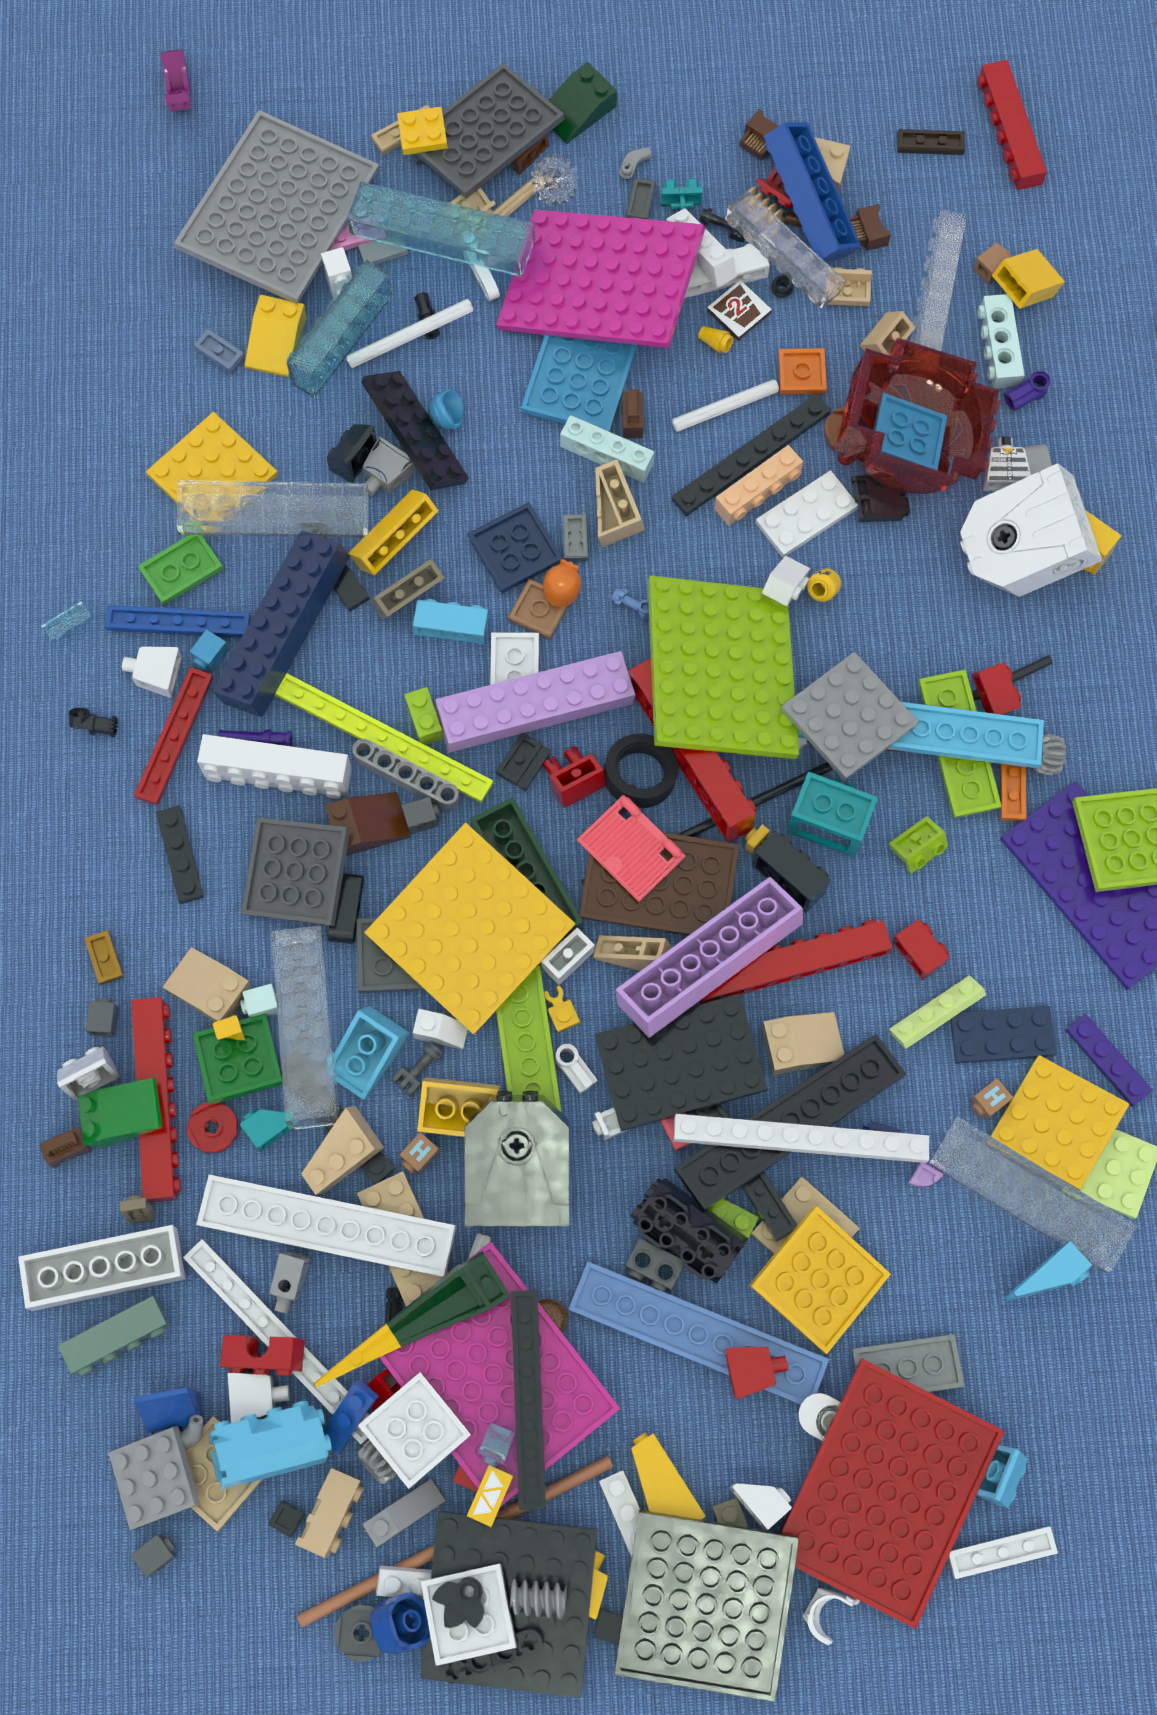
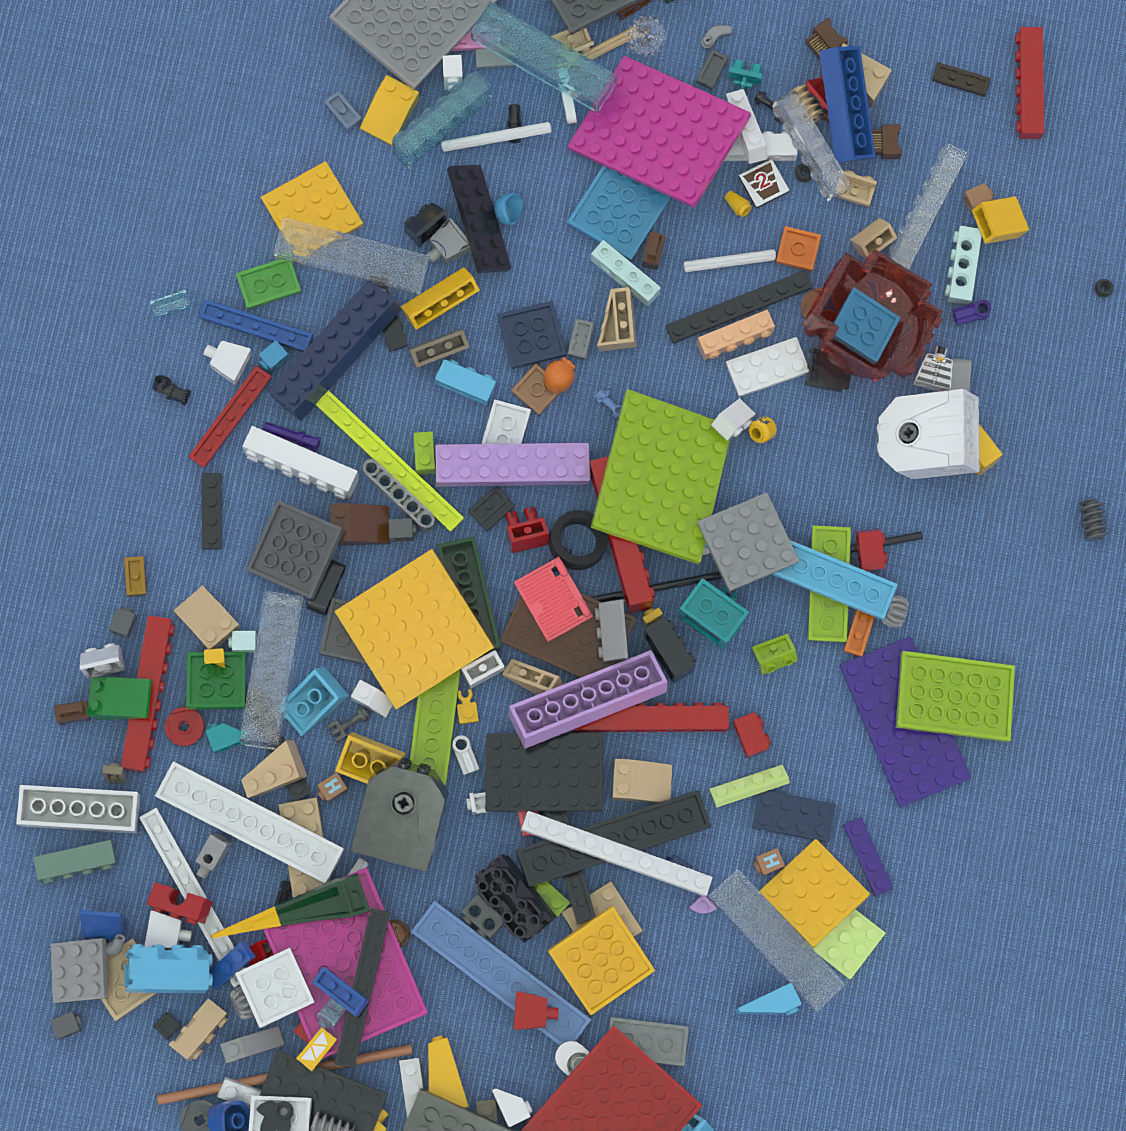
camera: 10 degrees right, 5 degrees up
(501, 1411) = (340, 991): none -> blue plate
(715, 866) = (611, 631): none -> light grey slope

